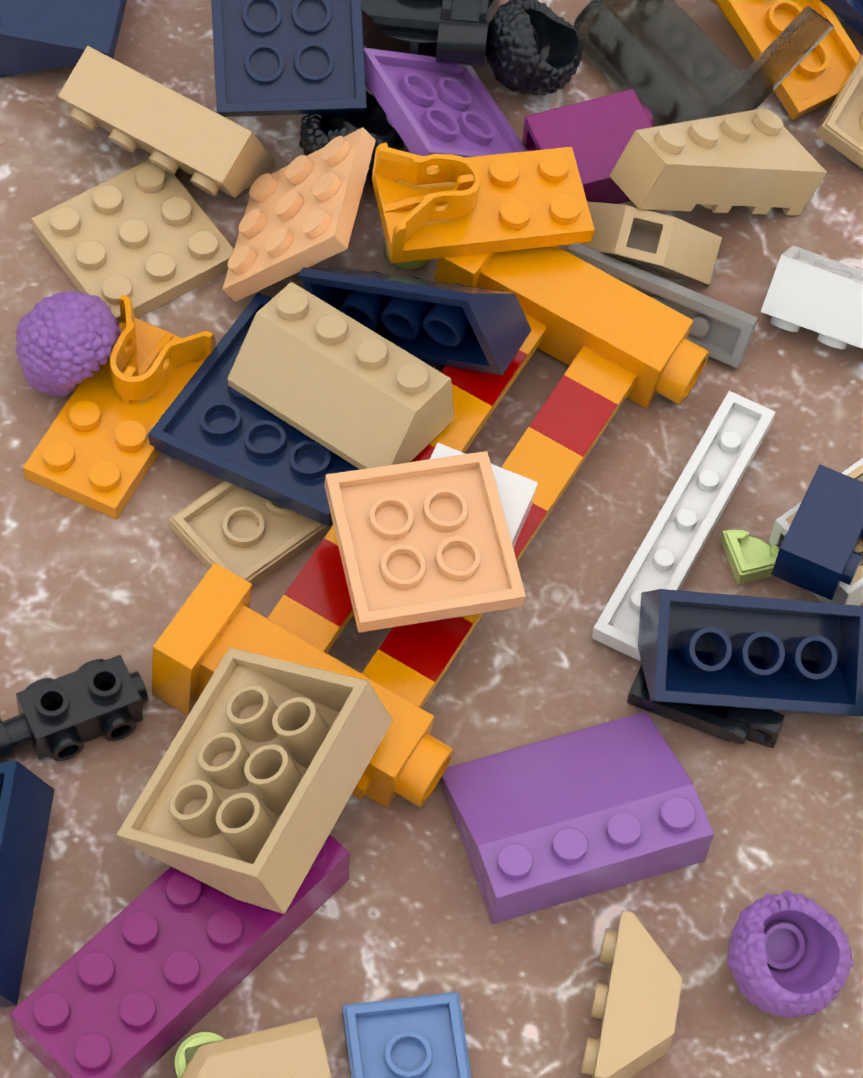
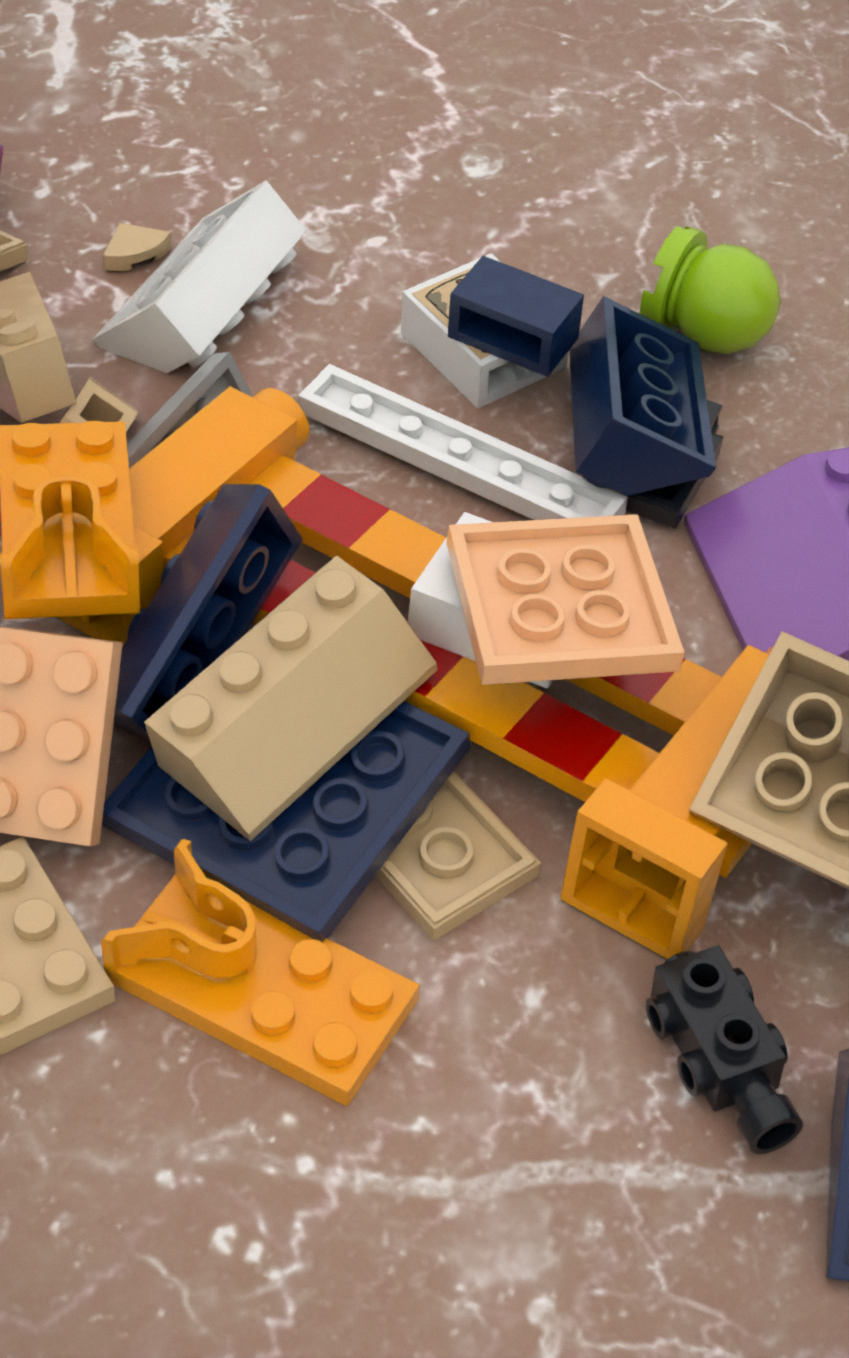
camera: 85 degrees left, 10 degrees down
(65, 341) = (169, 1014): medium lavender hair -> none
(748, 555) = (498, 414): yellowish green tile -> none

